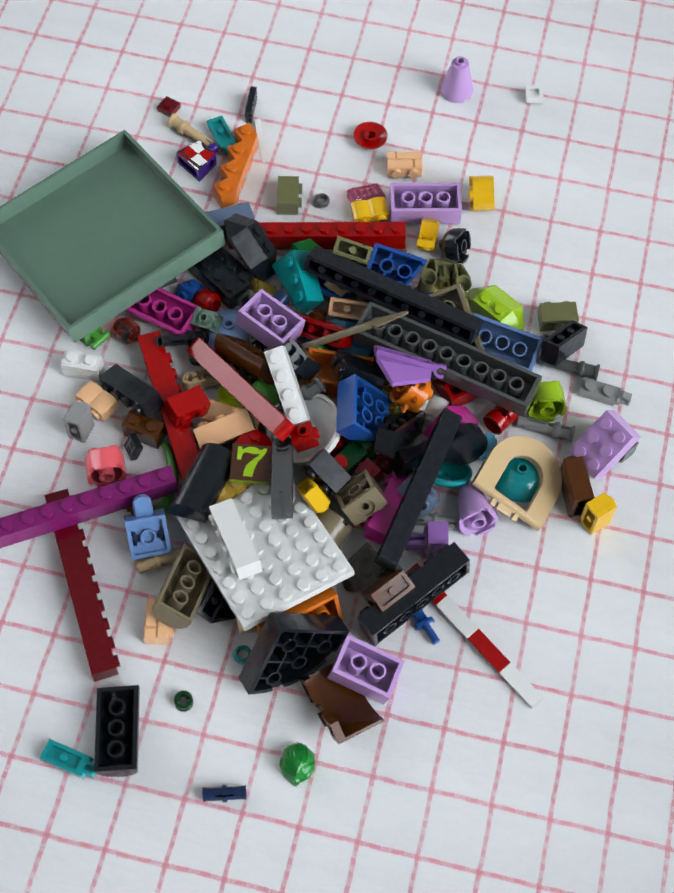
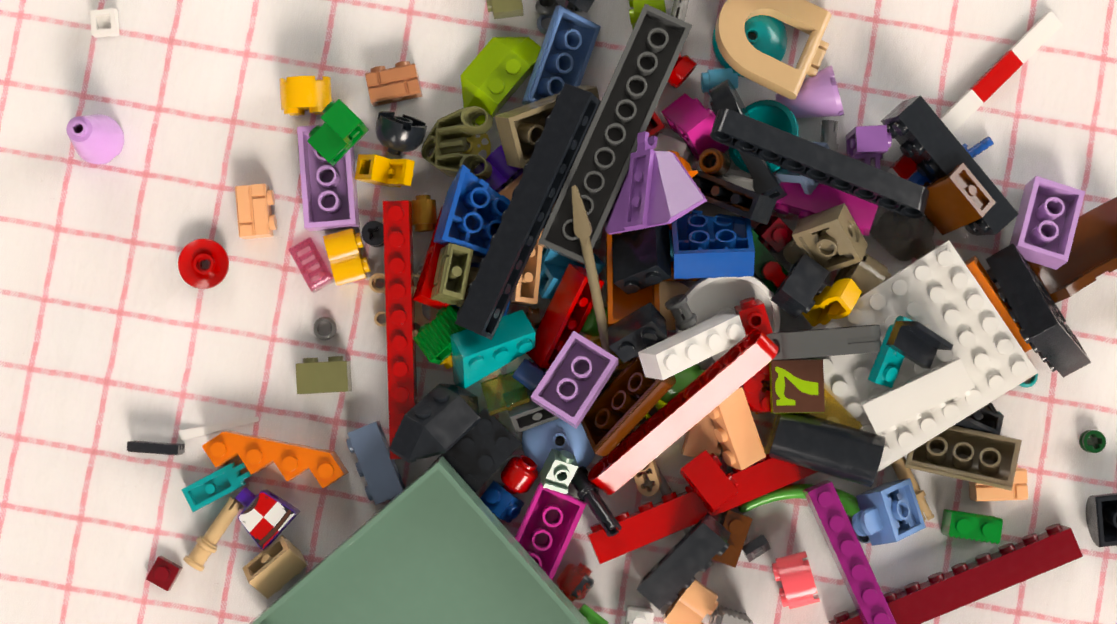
camera: 90 degrees left, 25 degrees up
(127, 597) = (971, 526): none -> green brick
(165, 157) = (274, 567): none -> tan brick
(269, 523) = (887, 361): none -> teal hinge
(274, 532) = (917, 342): none -> black panel
(424, 427) = (709, 157): none -> reddish brown brick
(454, 198) = (338, 133): none -> green brick
(489, 246) = (393, 84): none -> nougat brick

